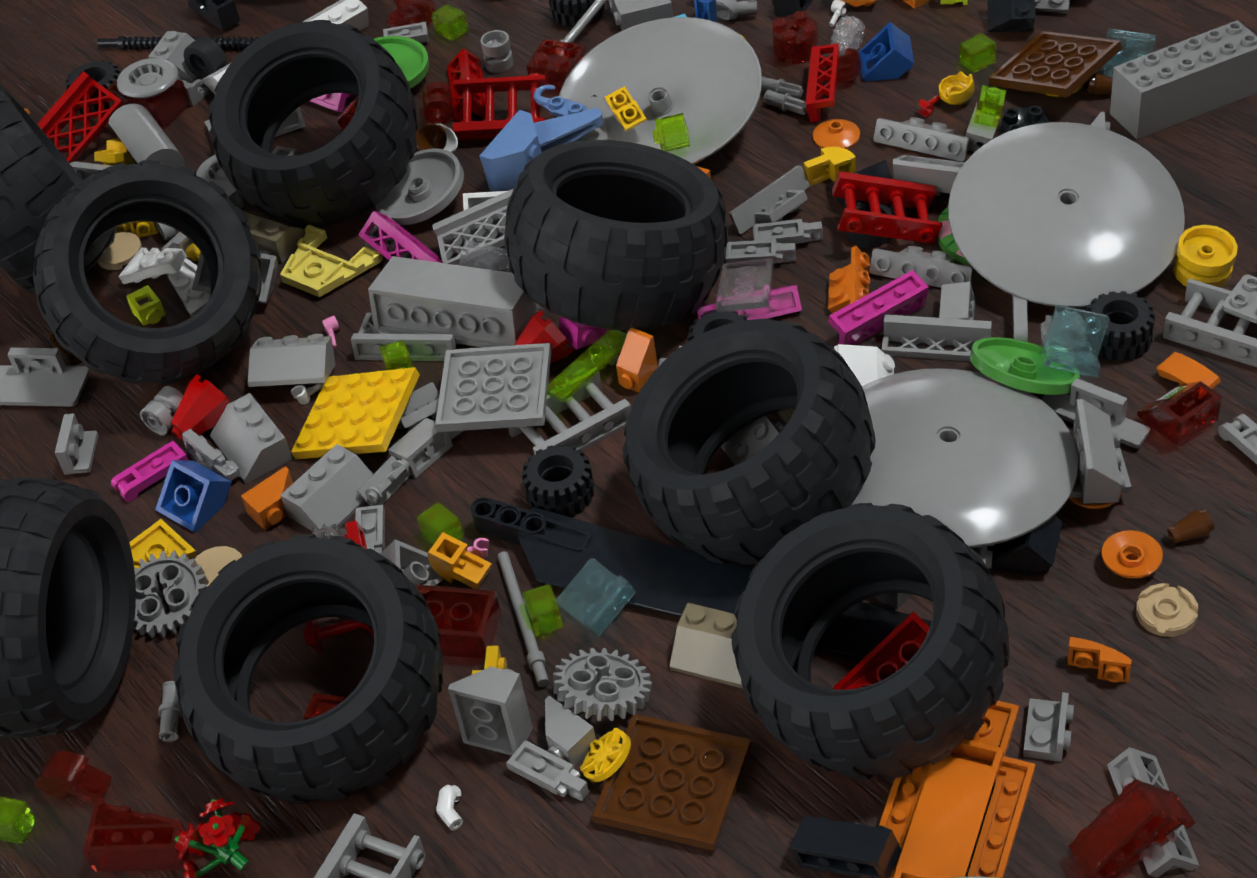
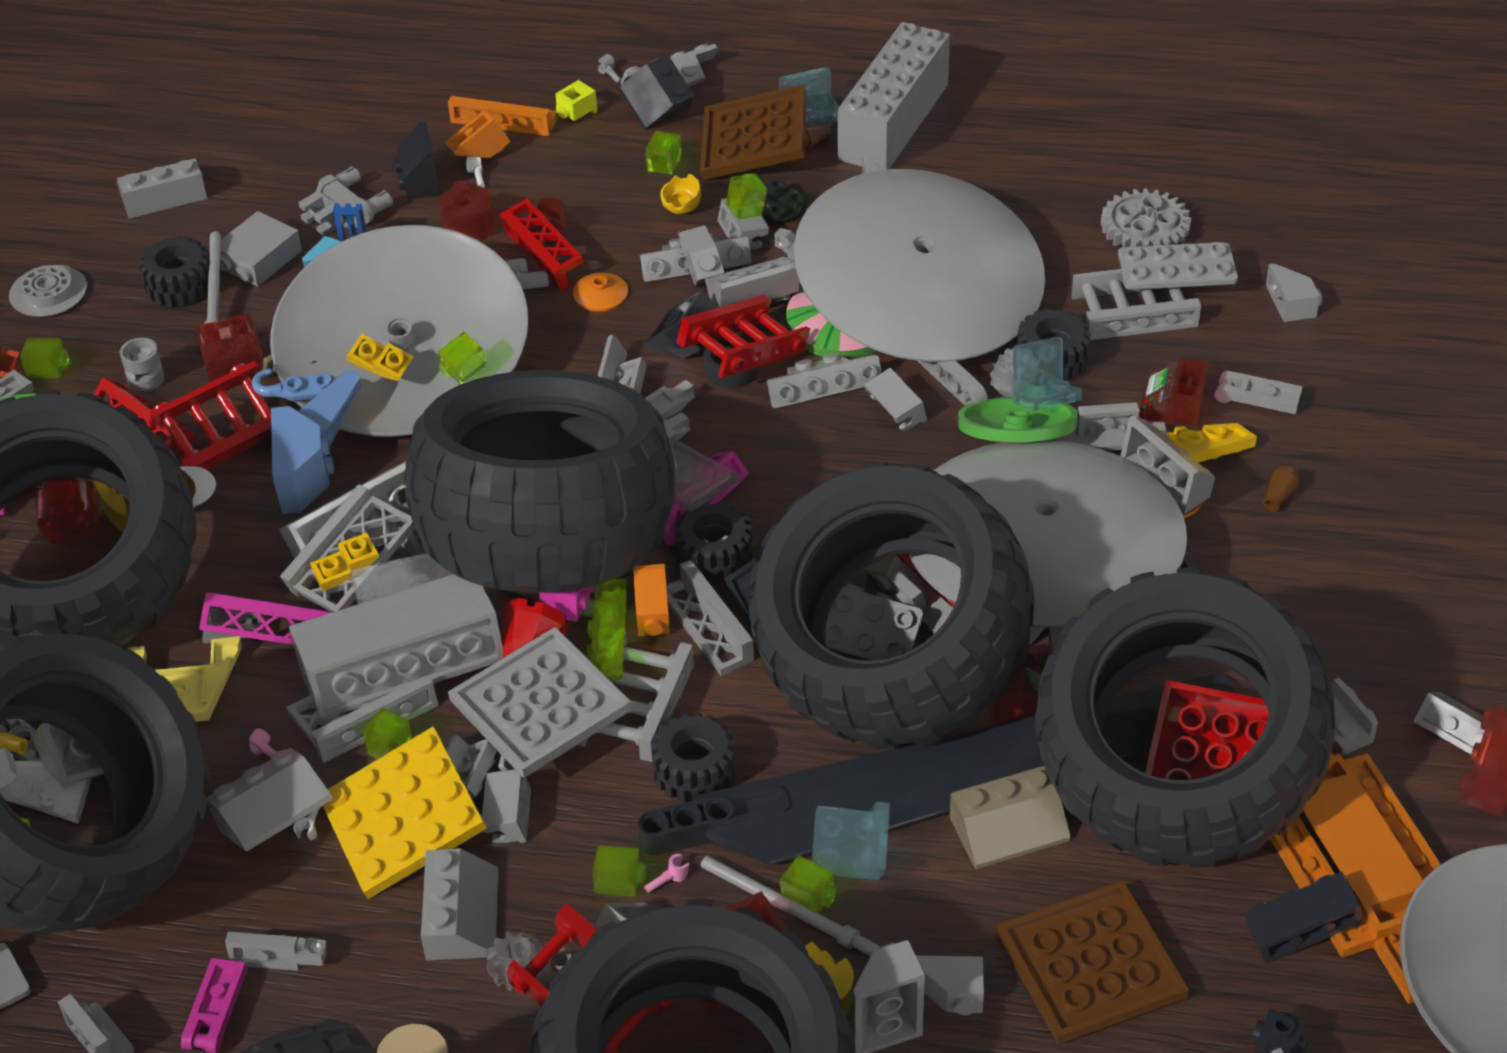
camera: 45 degrees left, 0 degrees up
(160, 412) = (165, 932): light grey wheel -> none
(192, 494) = (297, 994): blue slope -> none
(199, 408) = (214, 904): red cone -> none
(250, 439) = (302, 902): light grey slope -> none
(264, 500) = (398, 953): orange slope -> none
(373, 523) = (536, 914): light grey hinge -> none
(385, 481) = (506, 862): light grey hinge -> none
(426, 188) = (228, 545): light grey dish -> none
(453, 561) = (672, 889): light orange brick -> none
(479, 231) = (336, 568): none -> yellow slope
(547, 771) = (971, 1026): light grey hinge -> none
(601, 684) = (967, 912): light grey gear -> none
(606, 755) = (1014, 976): yellow wheel -> none
(829, 164) = (635, 320): yellow brick -> none
(848, 33) = (522, 184): clear gear -> none
(849, 282) = (772, 432): orange bracket -> none
(867, 314) = (831, 431): dark pink fence -> none
(886, 55) = (579, 189): blue slope -> none
(917, 135) = (700, 254): none -> light grey slope
(927, 106) = (666, 226): red hand -> none
(935, 333) = (898, 432): light grey fence -> none
(1089, 654) = (1334, 636): orange slope -> none
(1132, 554) = (1260, 536): orange dish -> none
(1154, 458) = (1213, 440): none -> yellow wing
(1167, 610) = (1327, 568): tan tile -> none
(1186, 370) = (1144, 358): orange slope -> none
(1205, 255) = (1066, 249): yellow wheel -> none

